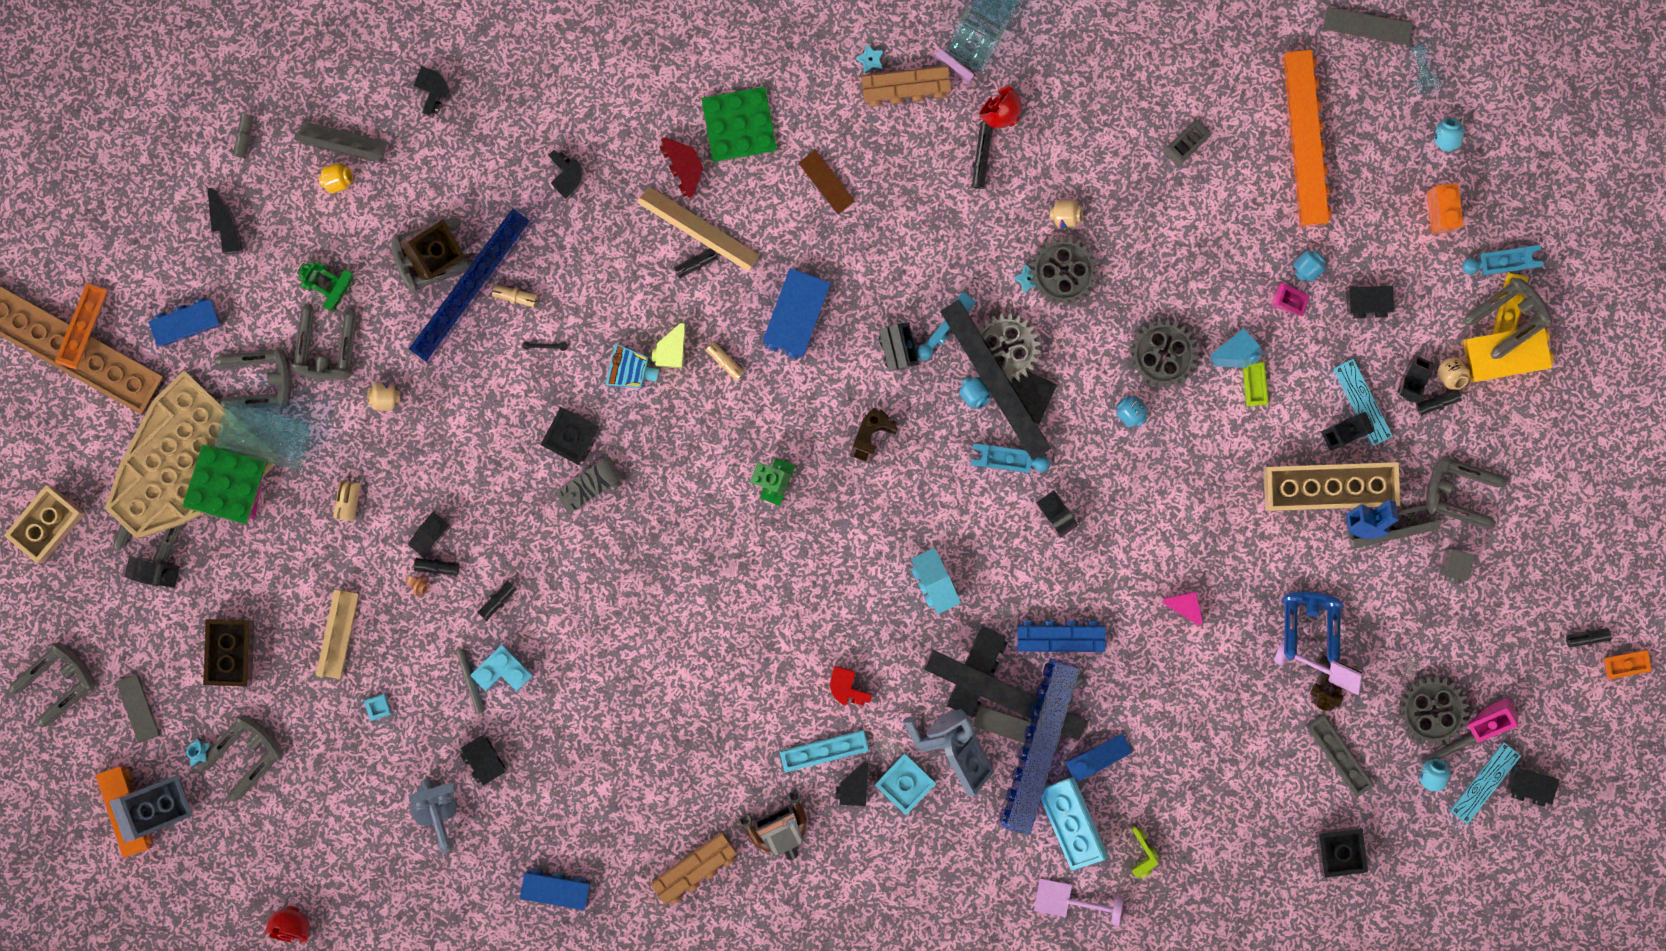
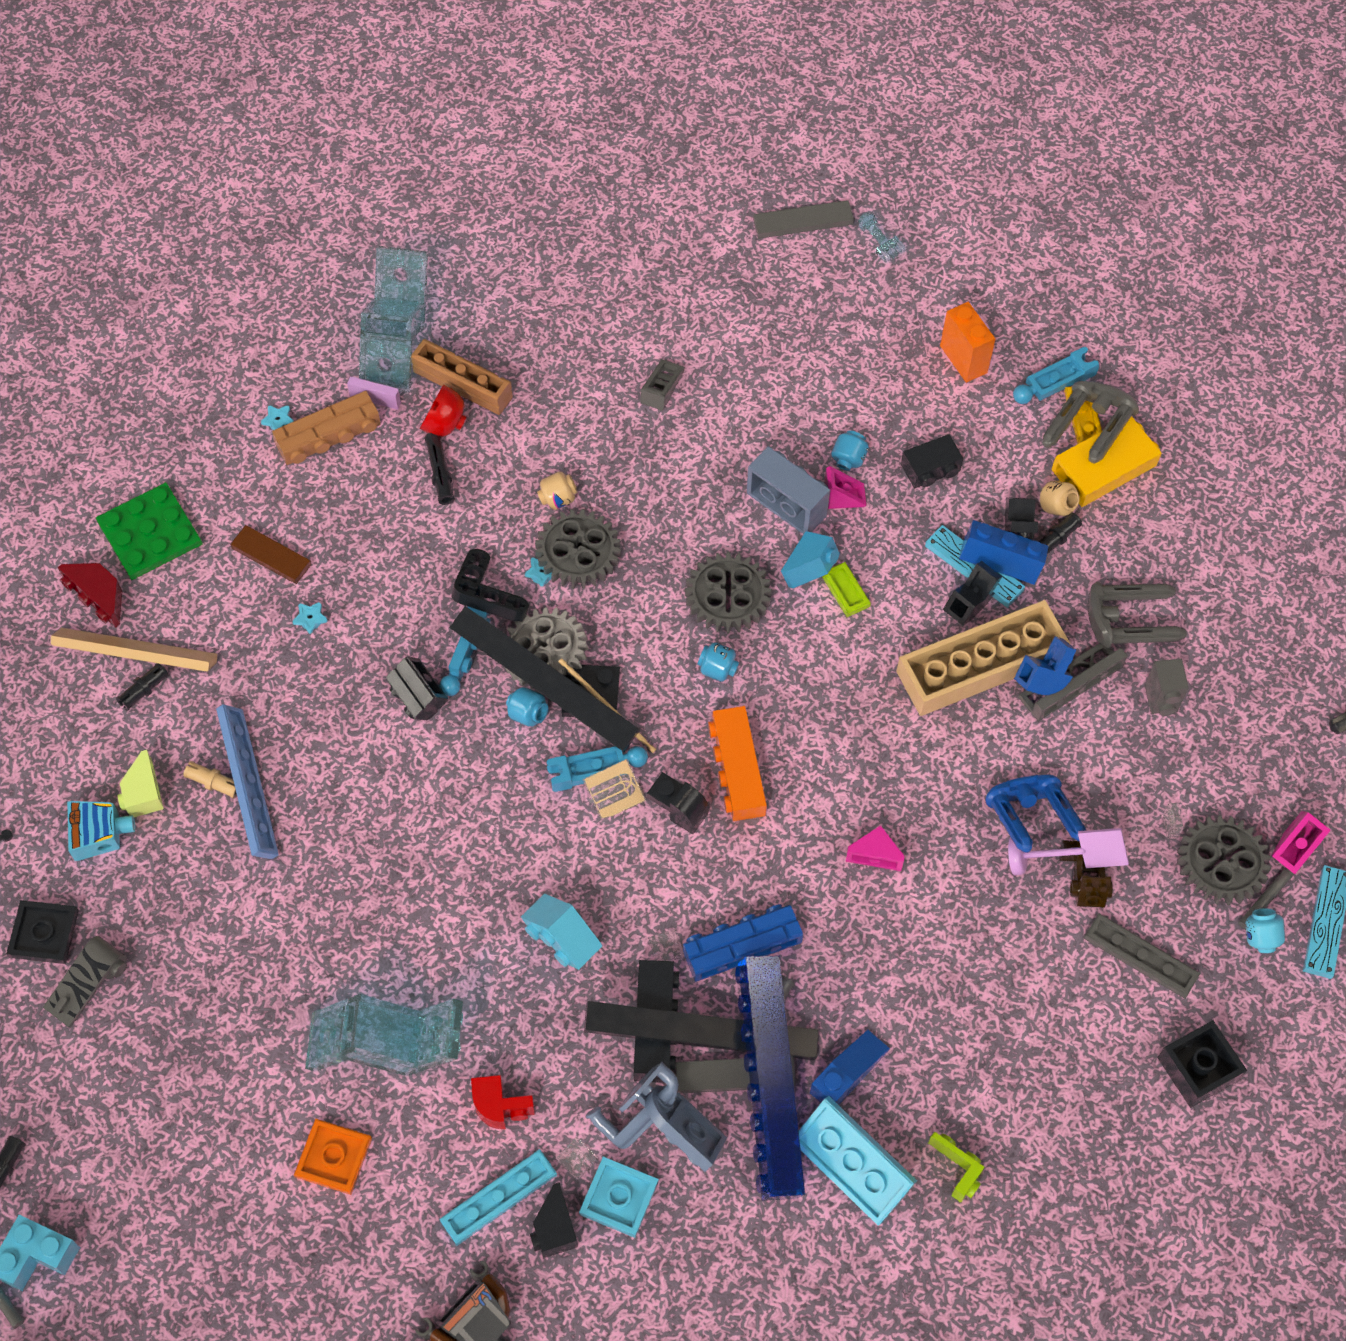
camera: 20 degrees left, 25 degrees down
(722, 679) = (333, 1156): none -> orange tile
(749, 373) = (247, 782): none -> medium blue tile
(773, 480) = (322, 884): green tile -> none
(785, 614) = (384, 1035): none -> clear light blue bracket
(796, 314) = (281, 697): blue brick -> none
(837, 244) = (312, 623): none -> medium azure plate
(863, 447) = (413, 802): dark brown tile -> none
(970, 280) = (472, 592): none -> black beam
(1015, 484) = (614, 789): none -> clear piece
(1028, 80) = (462, 376): none -> medium nougat brick
(1033, 412) = (600, 698): none -> tan piece
(1055, 897) = (872, 1271): lavender piece -> none
(1114, 498) = (738, 762): none -> orange brick
(1244, 288) = (788, 490): none -> sand blue brick
(1306, 138) = (788, 336): orange brick -> none
(1387, 405) = (1004, 552): none -> blue brick
(1449, 134) = (936, 280): medium azure head -> none

